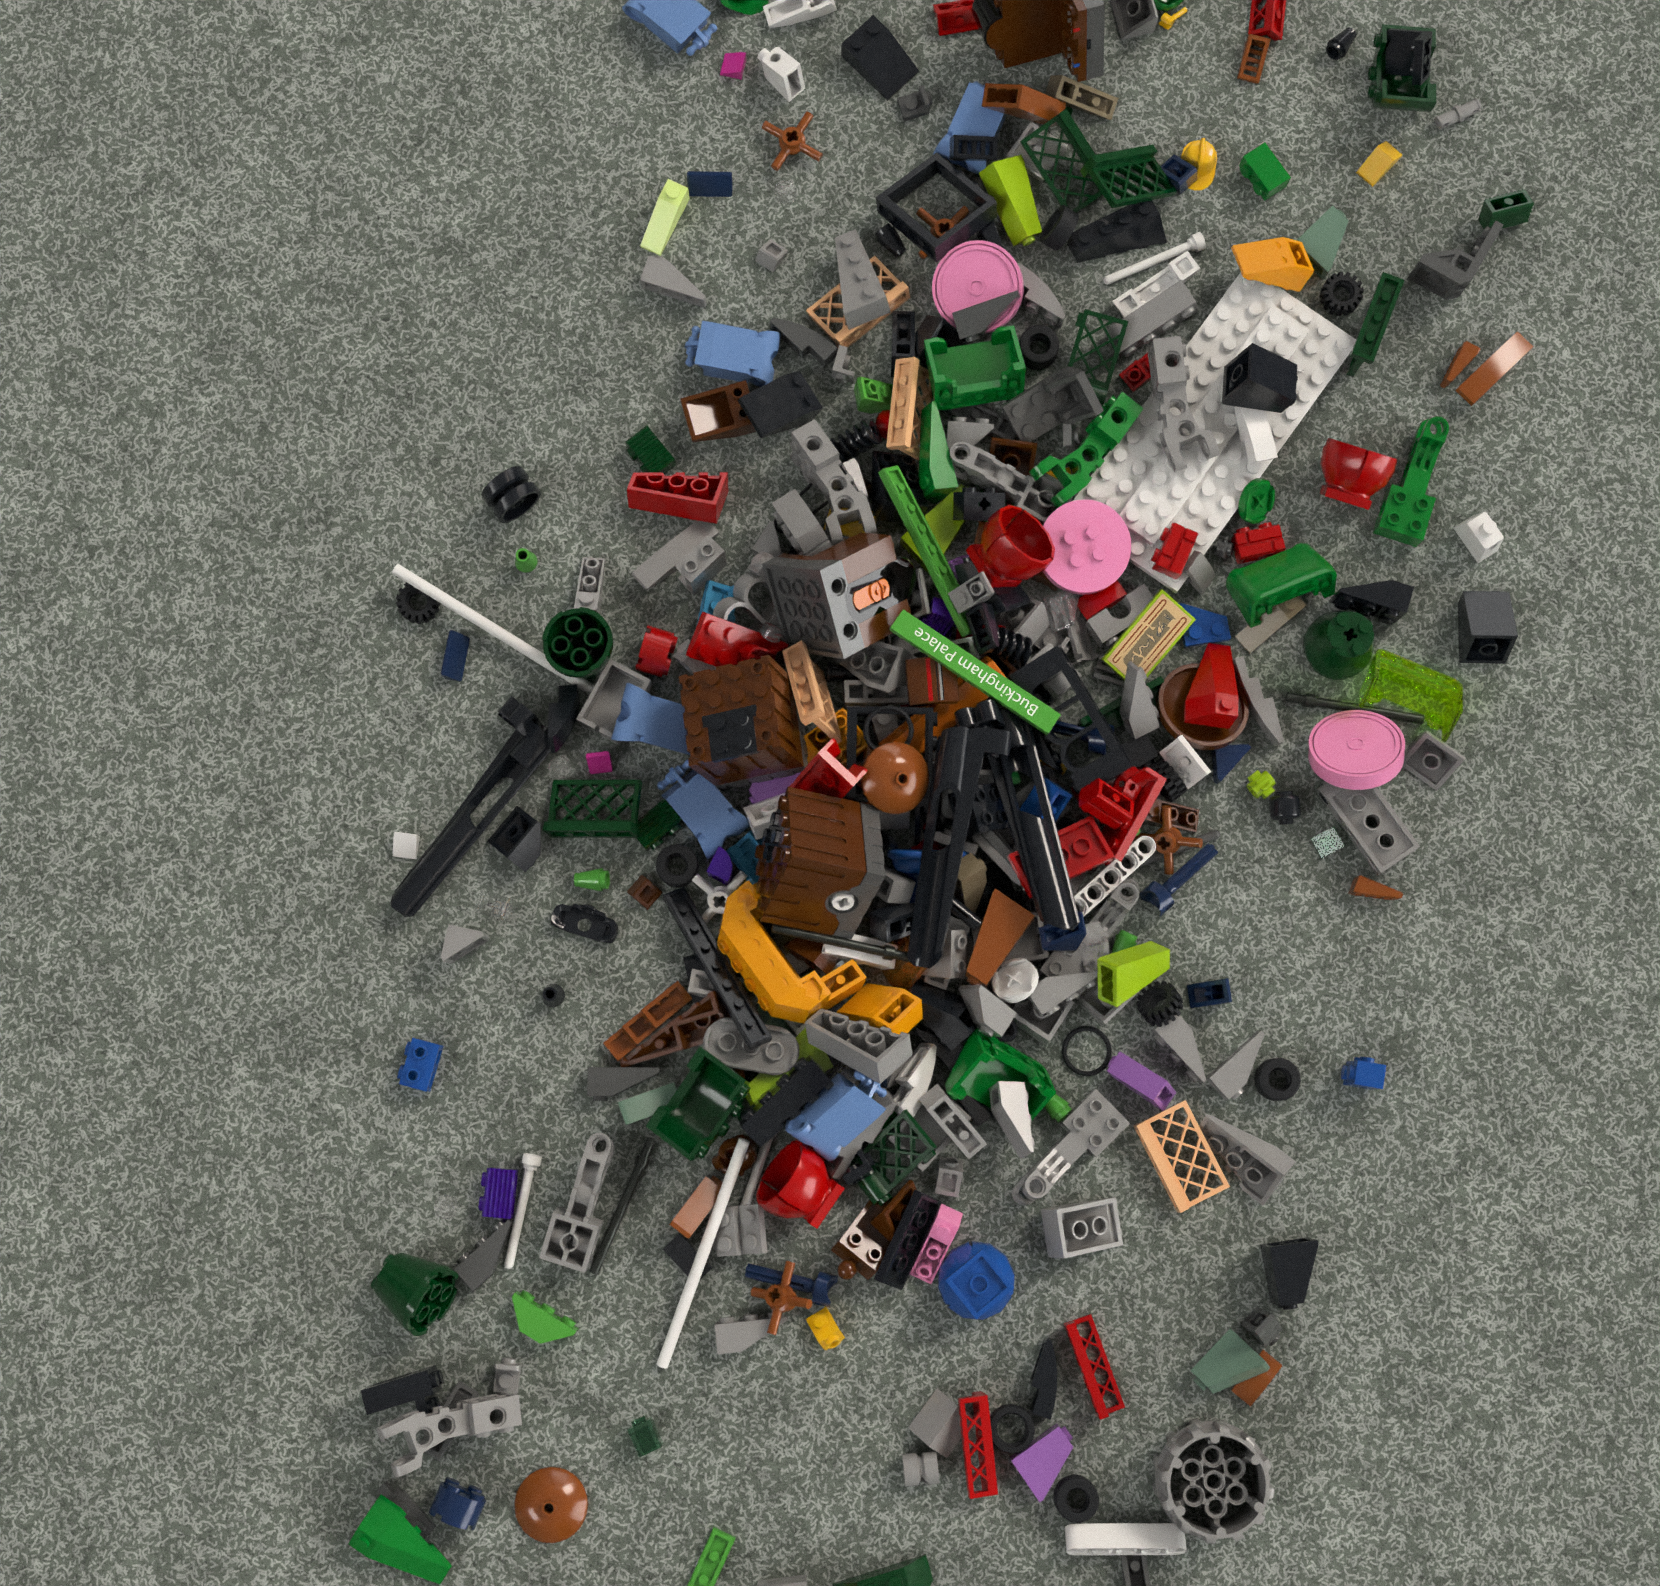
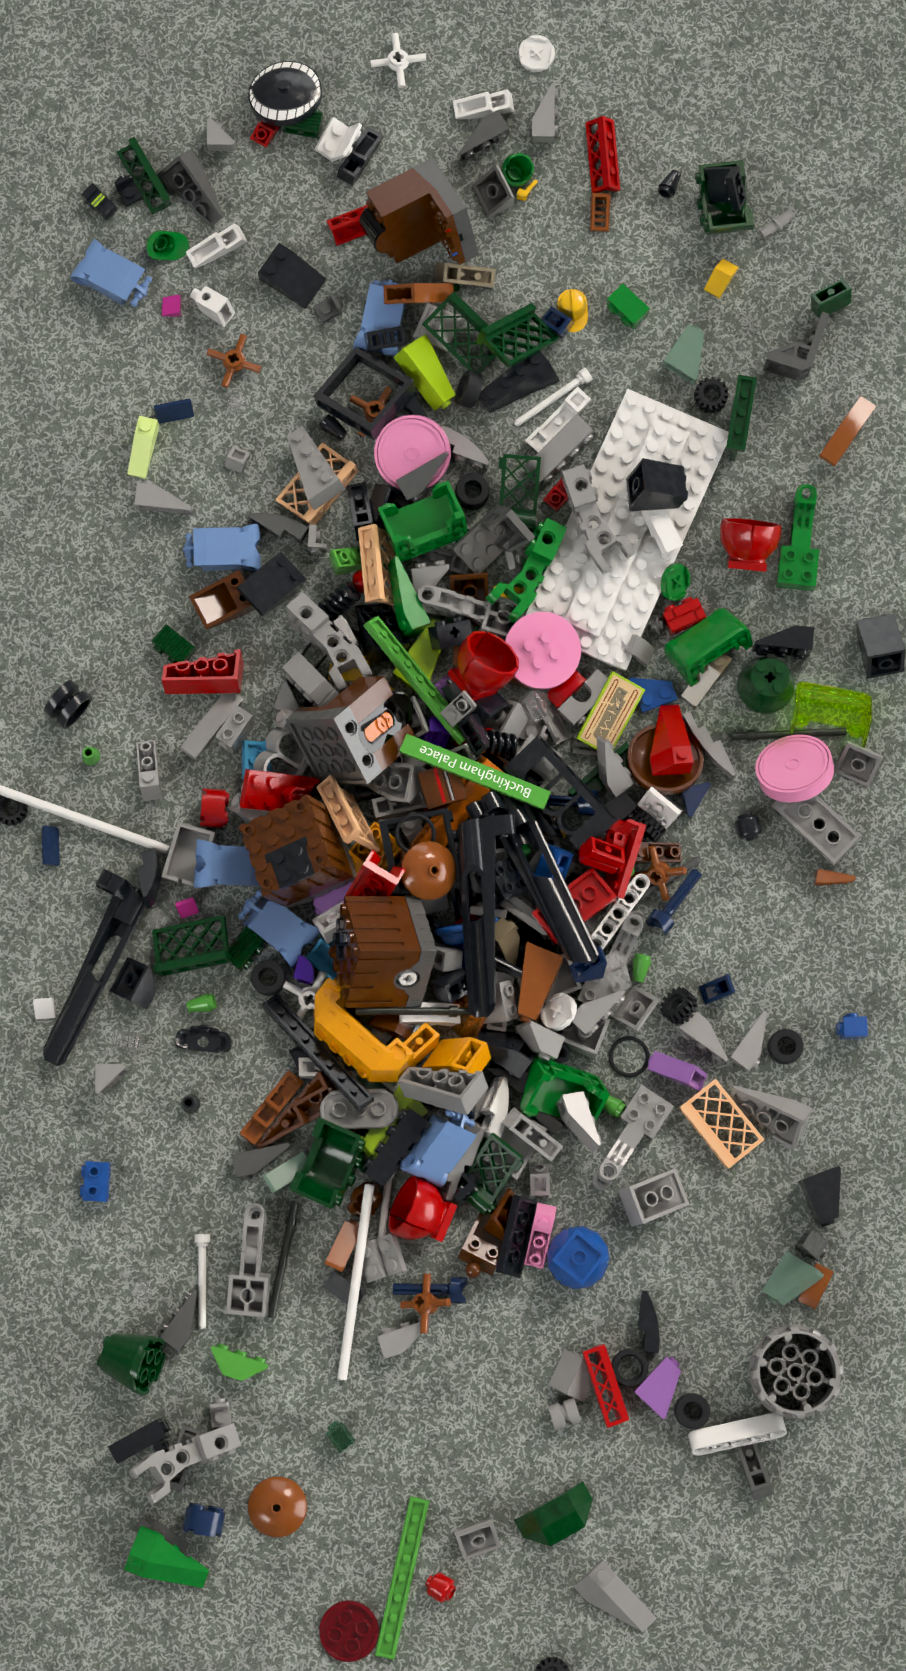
camera: 10 degrees left, 0 degrees up
(499, 1193) = (182, 1270): dark purple brick -> none
(570, 638) = (142, 811): dark green cone -> none
(644, 892) = (246, 1004): reddish brown slope -> none
(771, 632) = (304, 773): clear tile -> none
(825, 1329) = (466, 1321): yellow bracket -> none
(1086, 1369) = (681, 1311): red fence -> none
(1130, 970) = (649, 984): lime slope -> none
(1174, 550) = (615, 638): red brick -> none
(1261, 784) = (725, 812): lime gear -> none
(1274, 262) = (649, 383): light orange slope -> none
(1327, 842) = (788, 847): clear green slope -> none
(1462, 358) = (820, 427): dark orange slope -> none
(1480, 536) = (862, 572): white torso -> none

